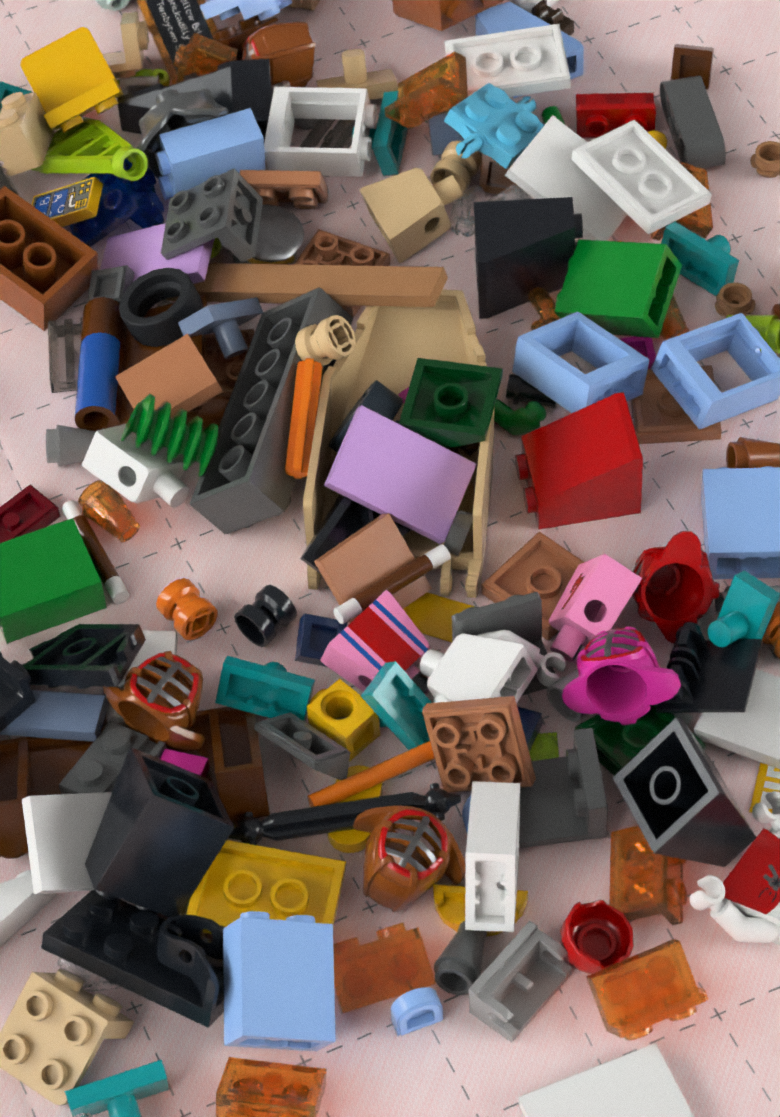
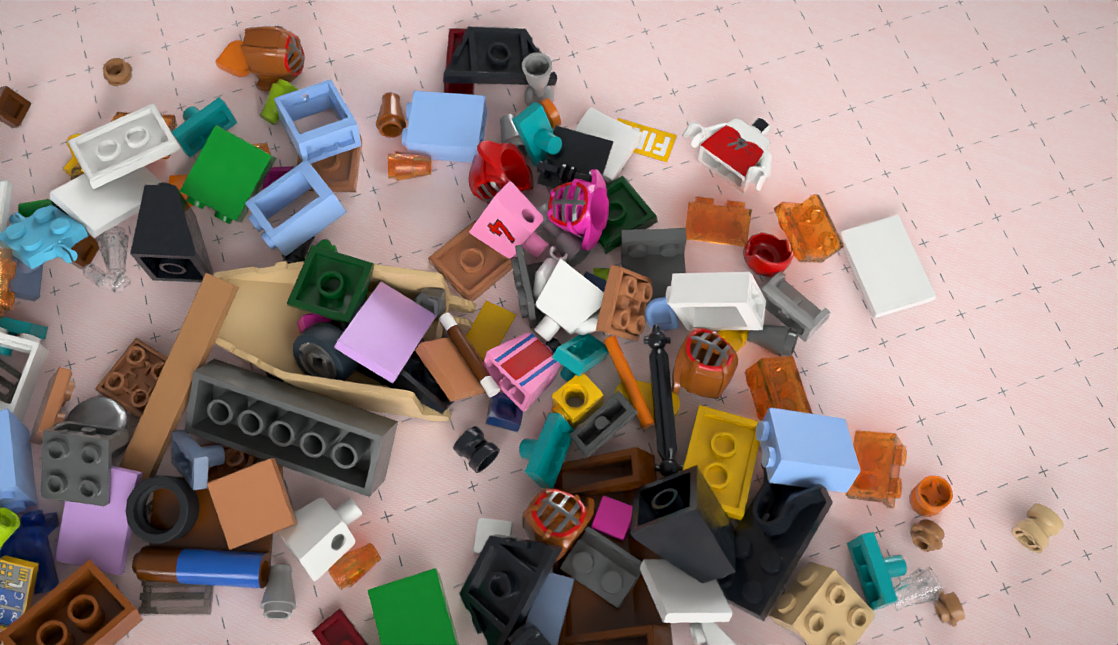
camera: 85 degrees left, 15 degrees up
(97, 553) = (360, 590): bar -> none
(110, 282) = (119, 555): dark grey tile -> none
(172, 433) = (313, 499): green piece -> none
(183, 605) = (461, 507): orange wheel -> none
(303, 417) = (320, 394): orange axle -> none
(326, 341) = (254, 369): tan wheel -> none
(410, 210) = (99, 315): tan torso -> none
(416, 1010) = (813, 370): light blue tile -> none
(454, 165) = (59, 278): tan wheel -> none
(544, 306) = (222, 231): clear orange arm -> none
(583, 466) = (383, 216): red slope -> none
(605, 112) = (38, 166): red bracket -> none
(678, 486) = (407, 165): none -> clear orange cone
(683, 800) = (687, 179): black slope -> none
(692, 122) = (65, 114): dark grey beam -> none
(734, 299) = (244, 106): medium nougat plate -> none

